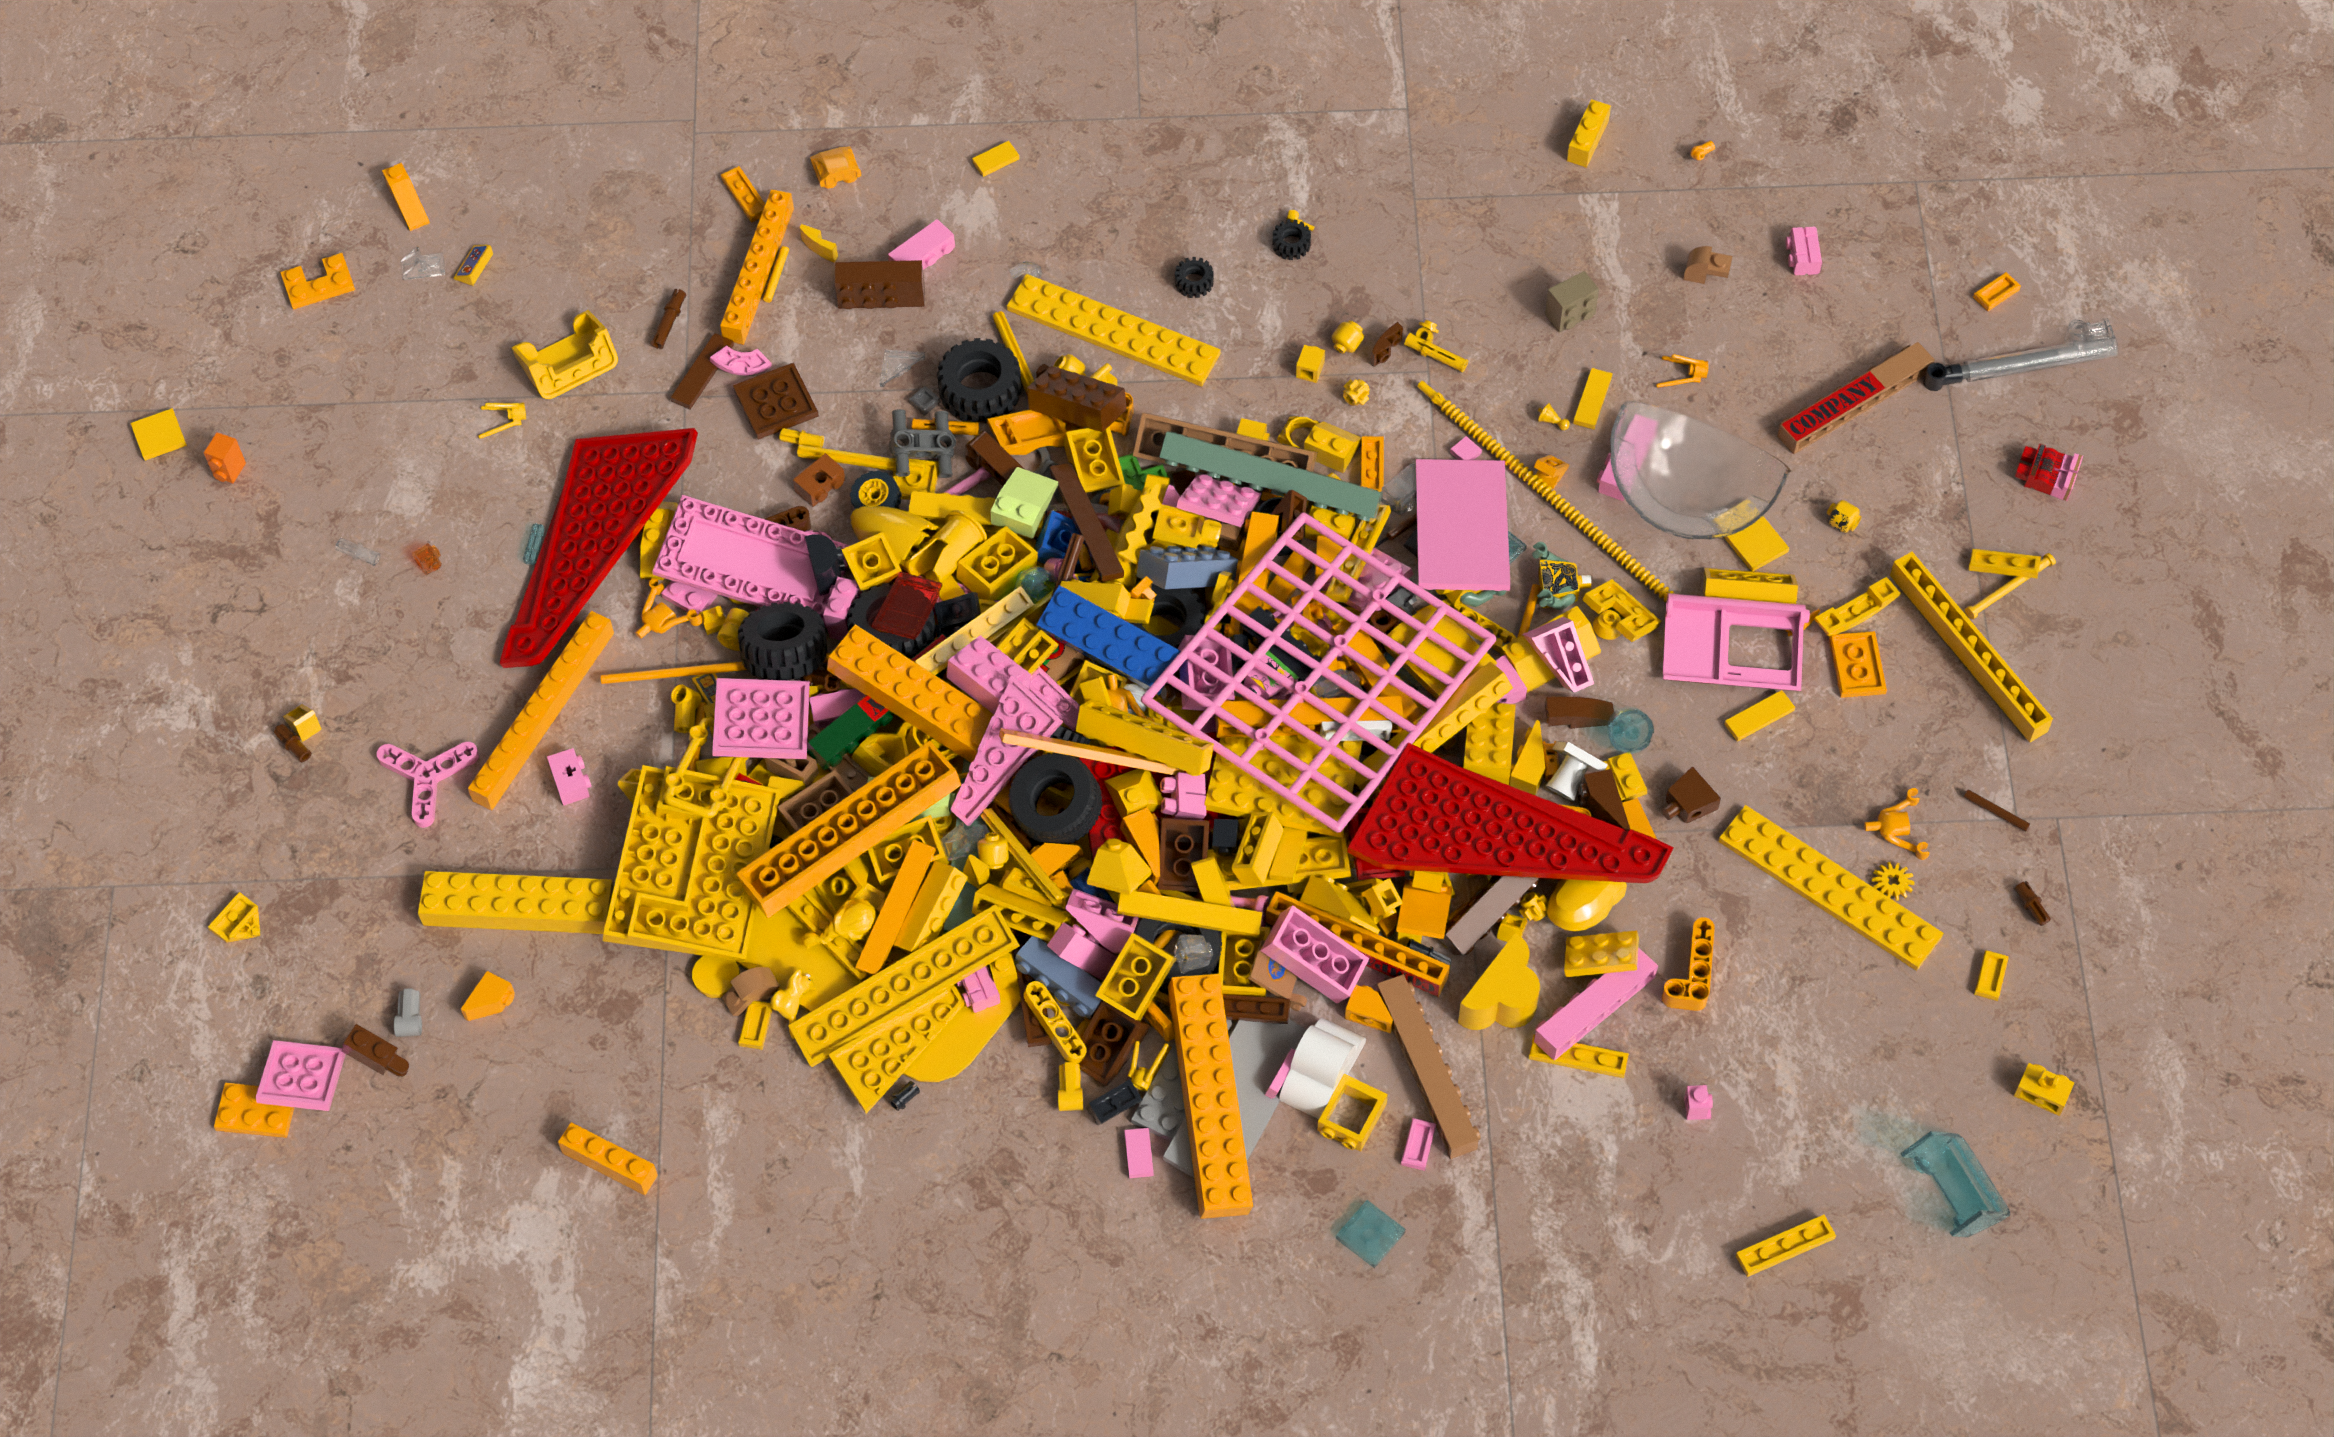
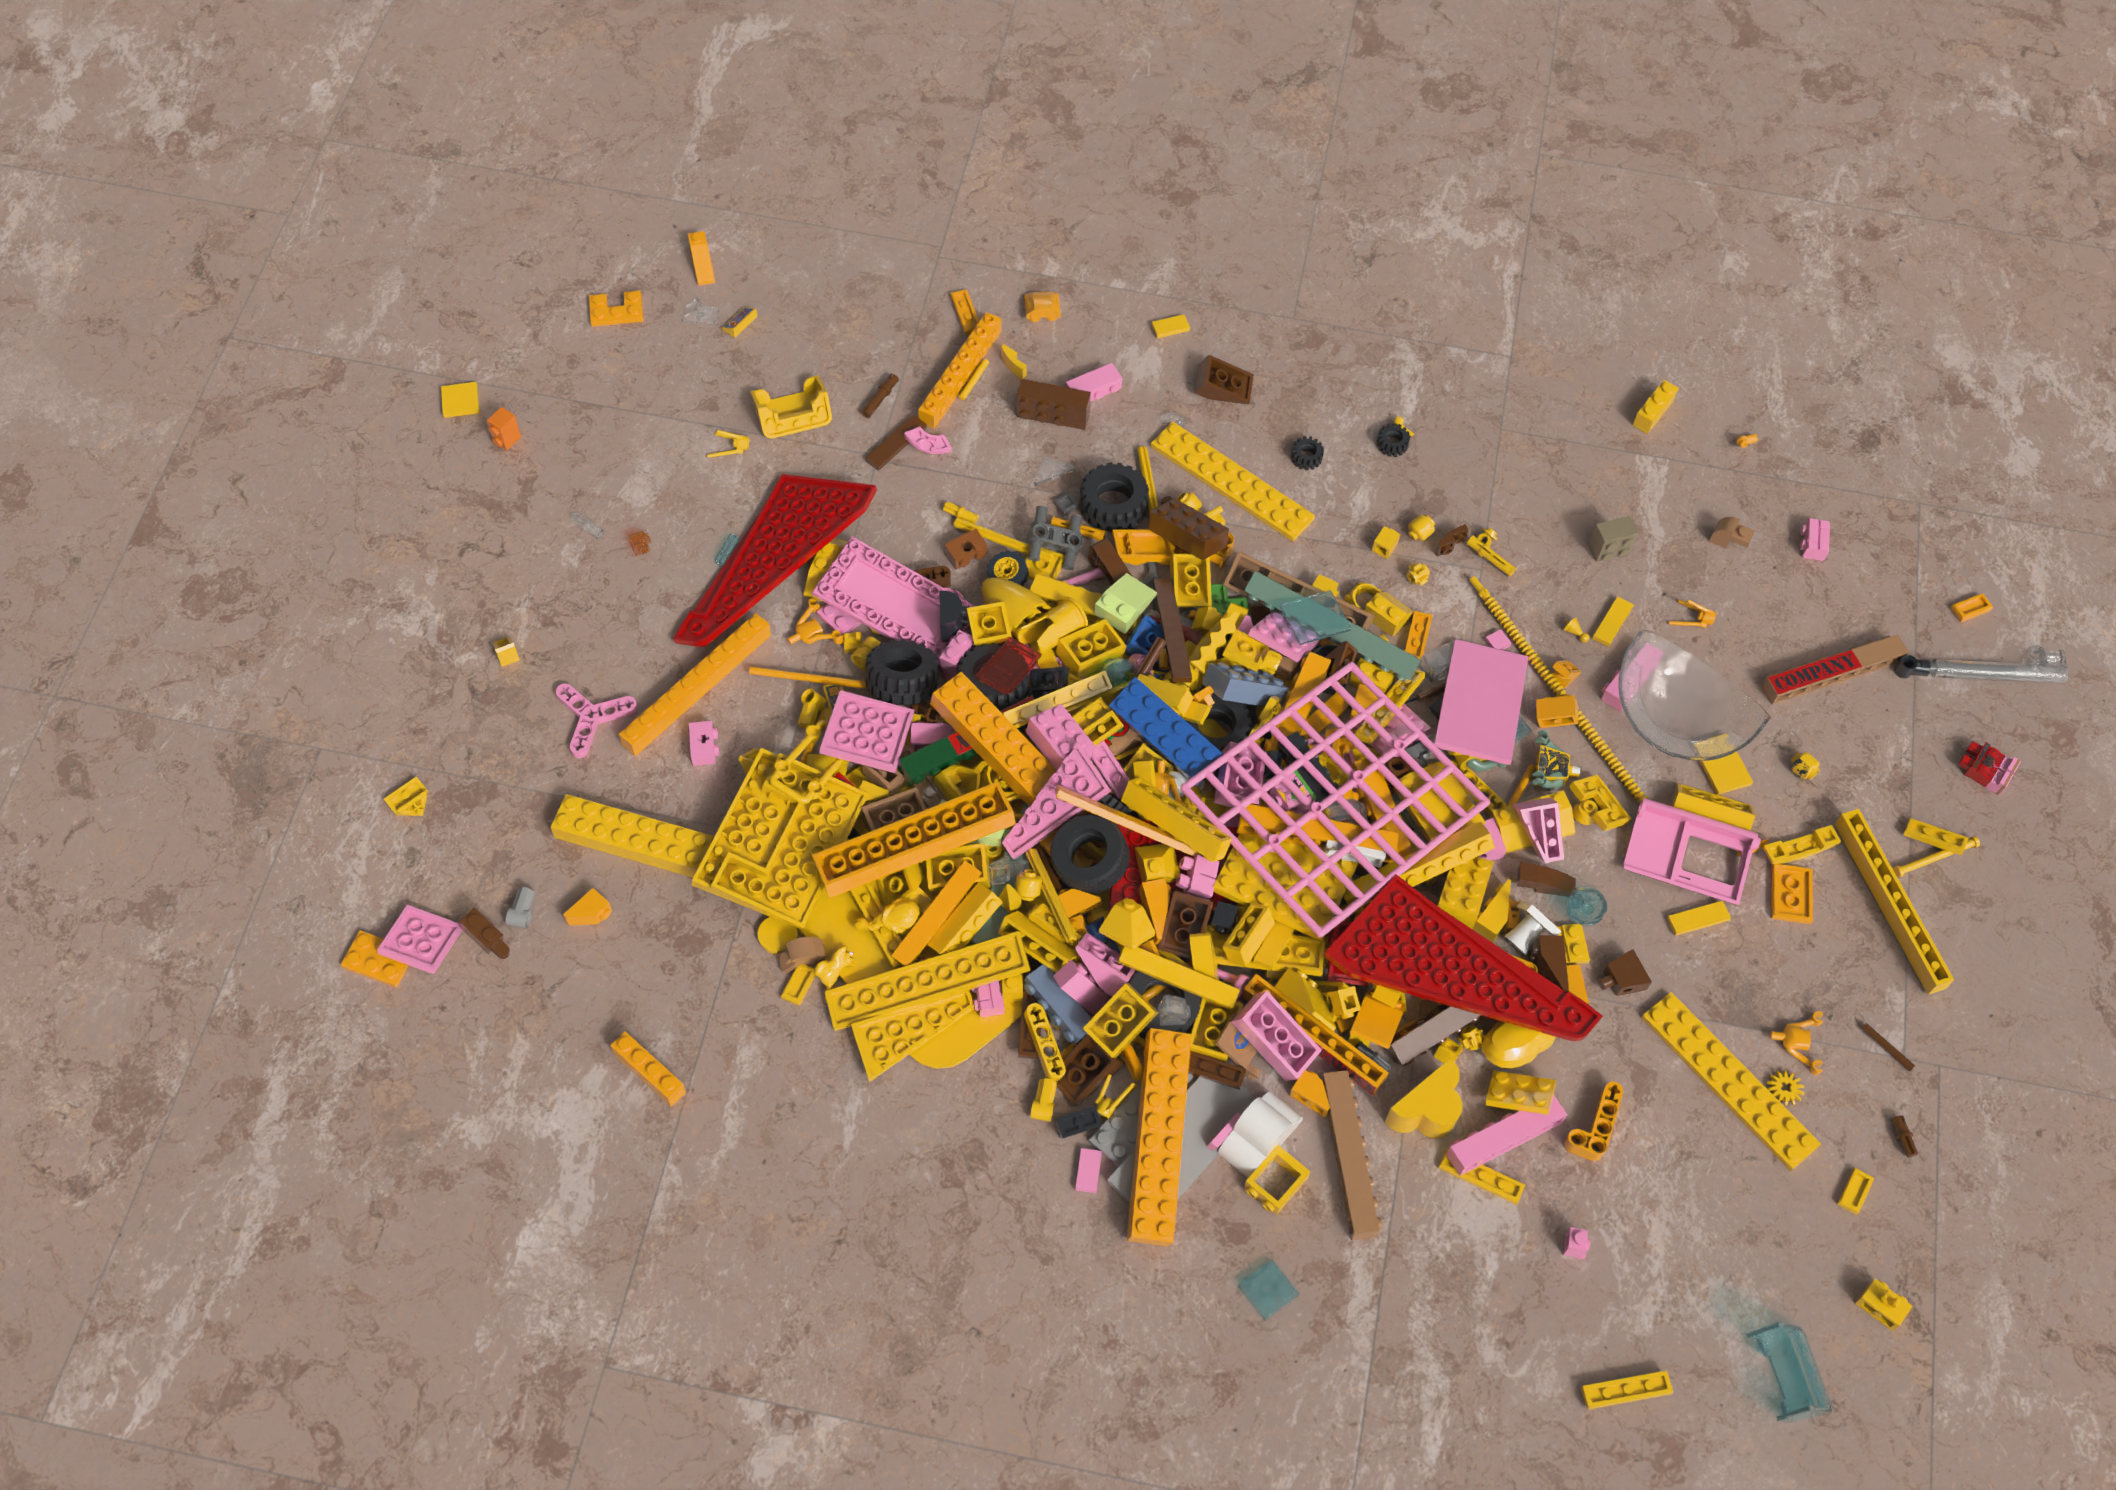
camera: 10 degrees right, 0 degrees up
(292, 743) = (493, 665): reddish brown axle -> none
(775, 400) = (947, 478): reddish brown plate -> none
(902, 1097) = (904, 1074): black pin -> none
(1074, 212) = (1223, 381): none -> reddish brown slope
(1249, 470) = (1315, 617): none -> clear light blue piece
(1418, 1144) = (1327, 1220): bright pink tile -> none
(1550, 517) = (1557, 711): none -> light orange brick

